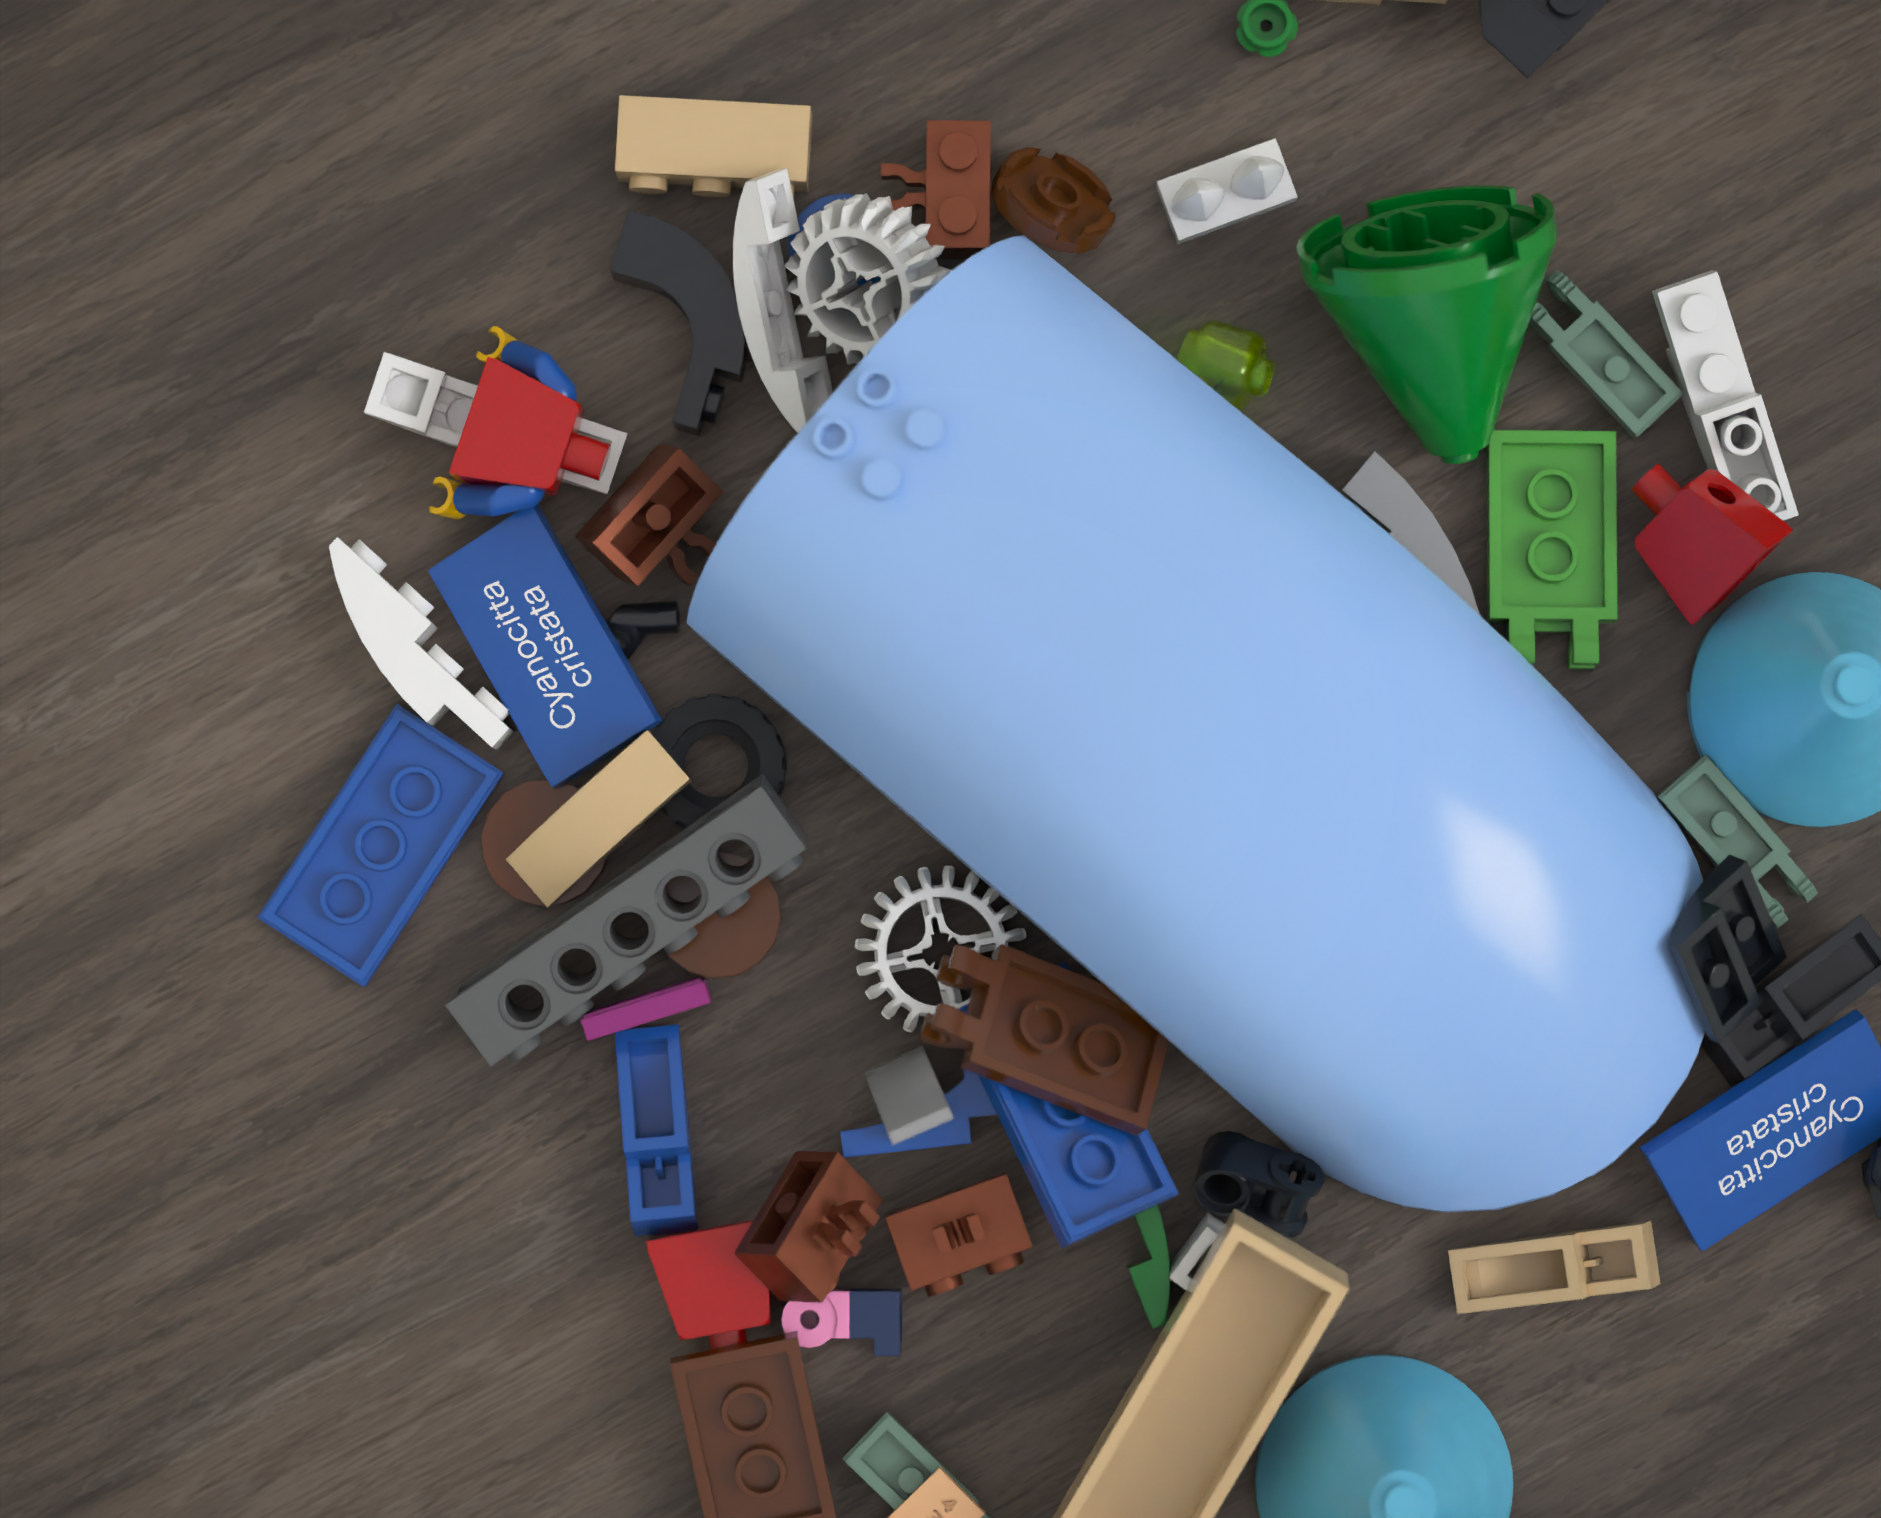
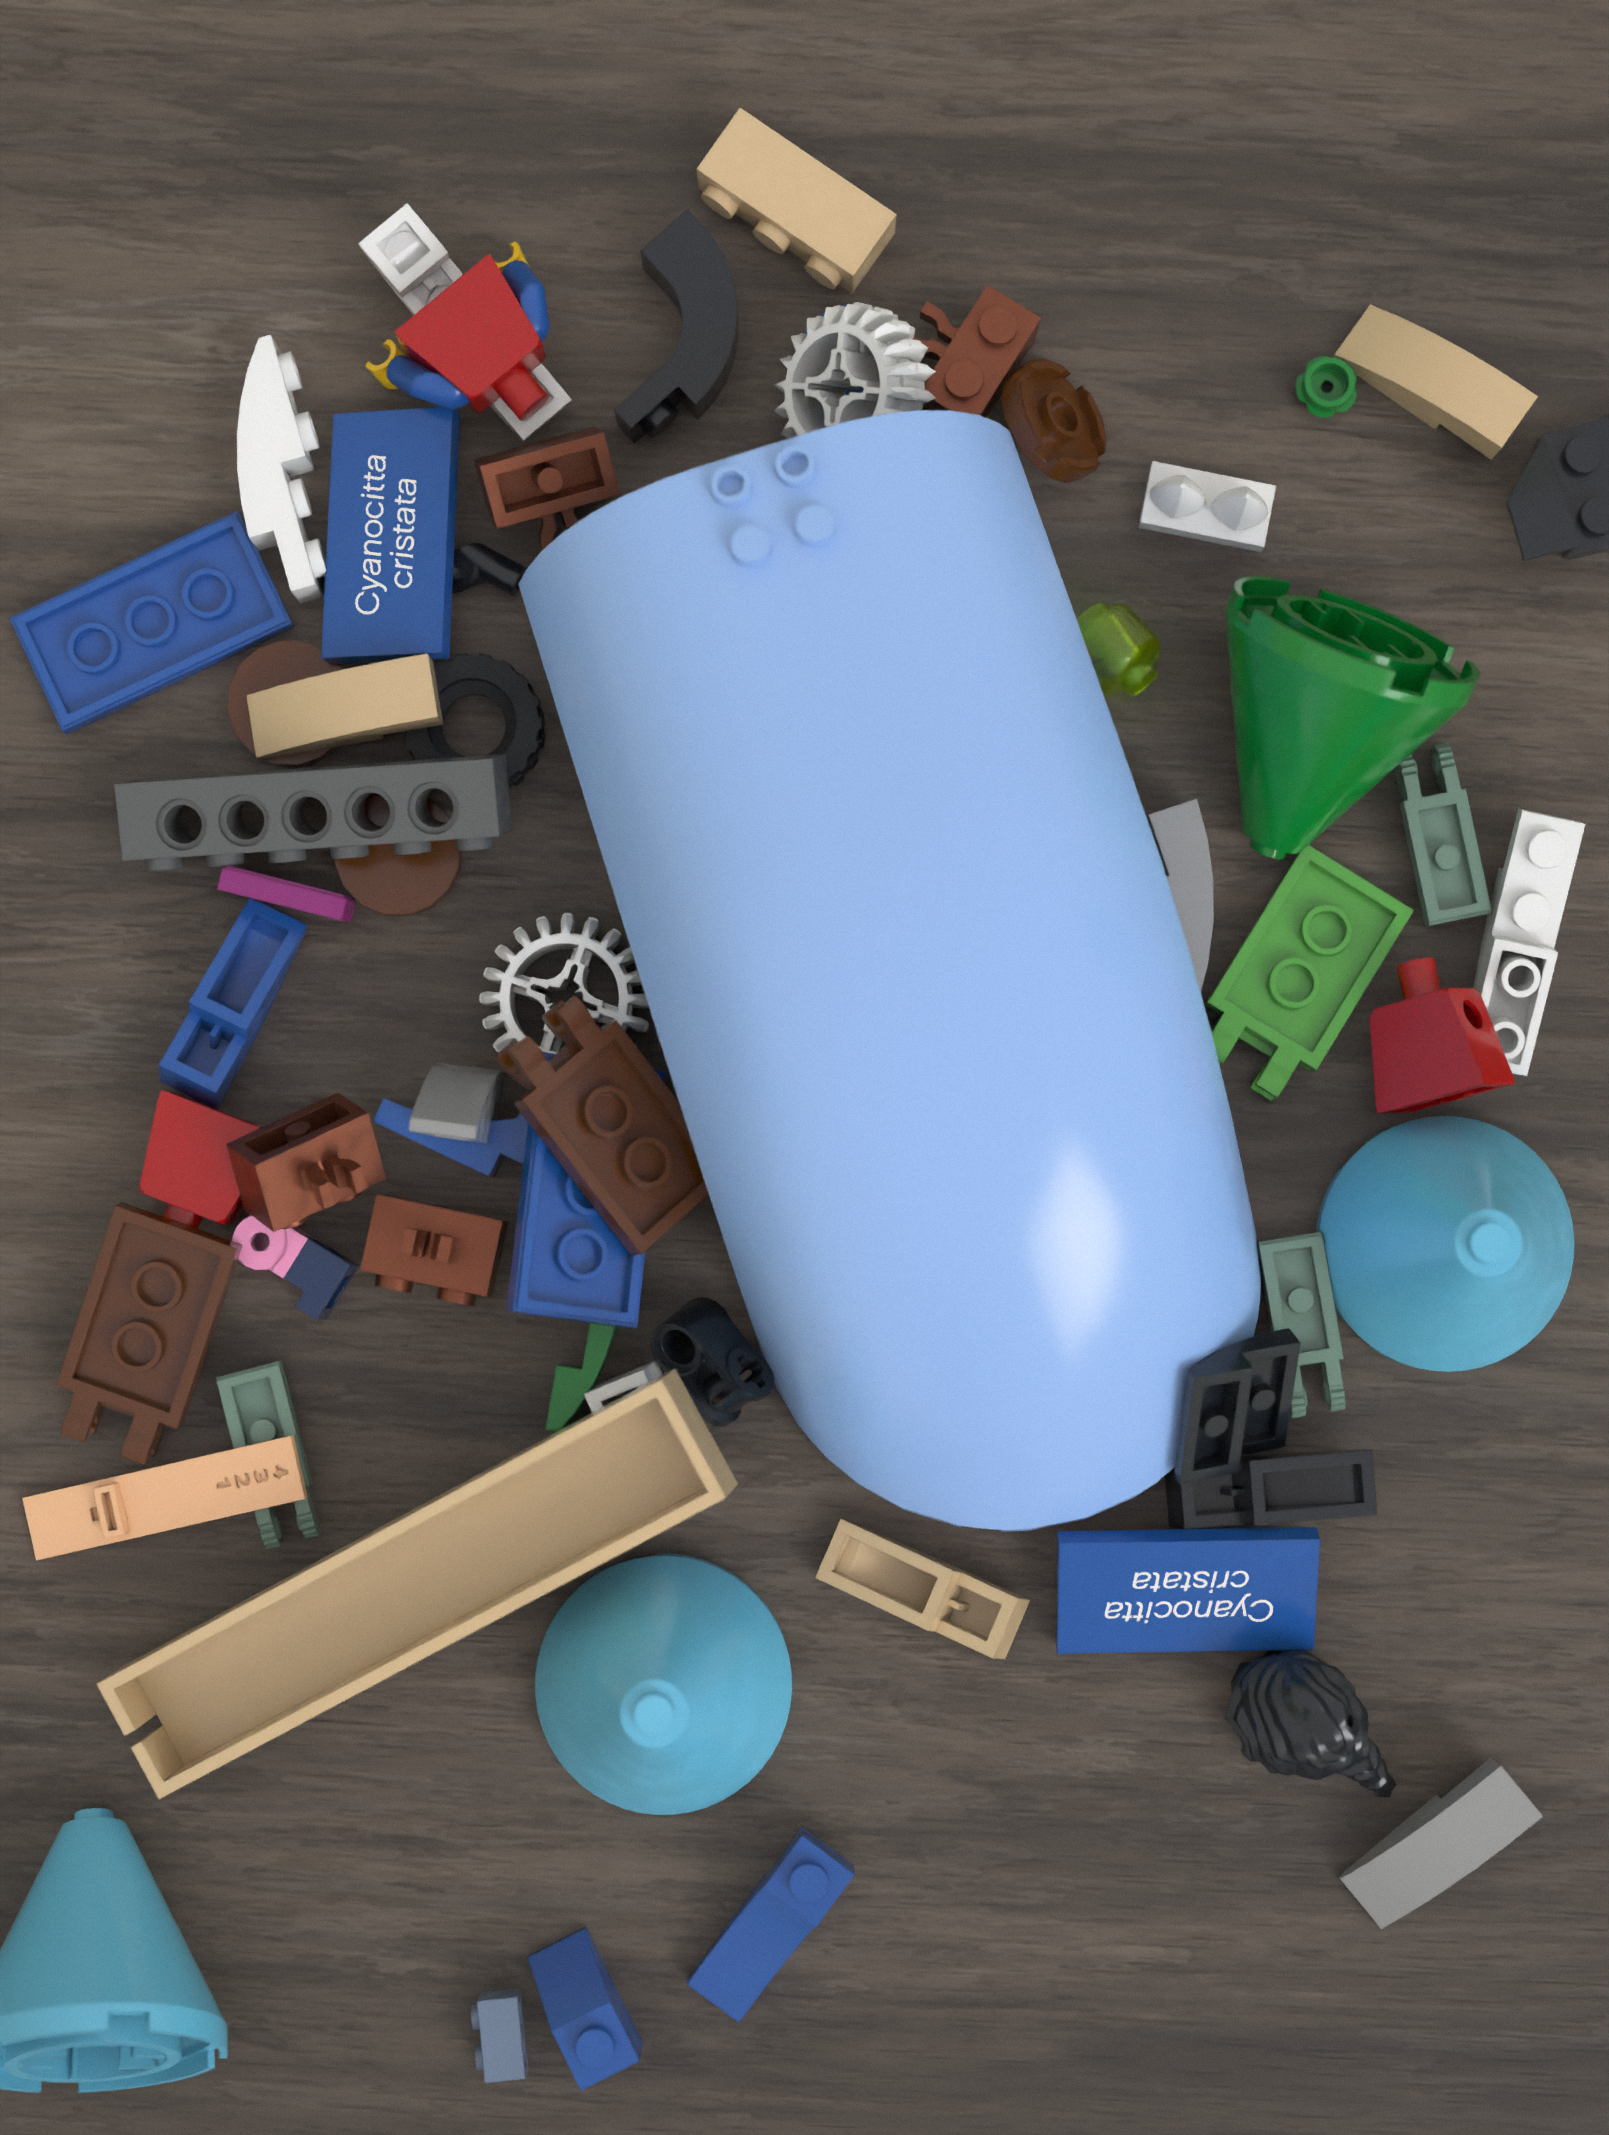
camera: 30 degrees right, 0 degrees up
(765, 308) = (763, 335): white slope -> none

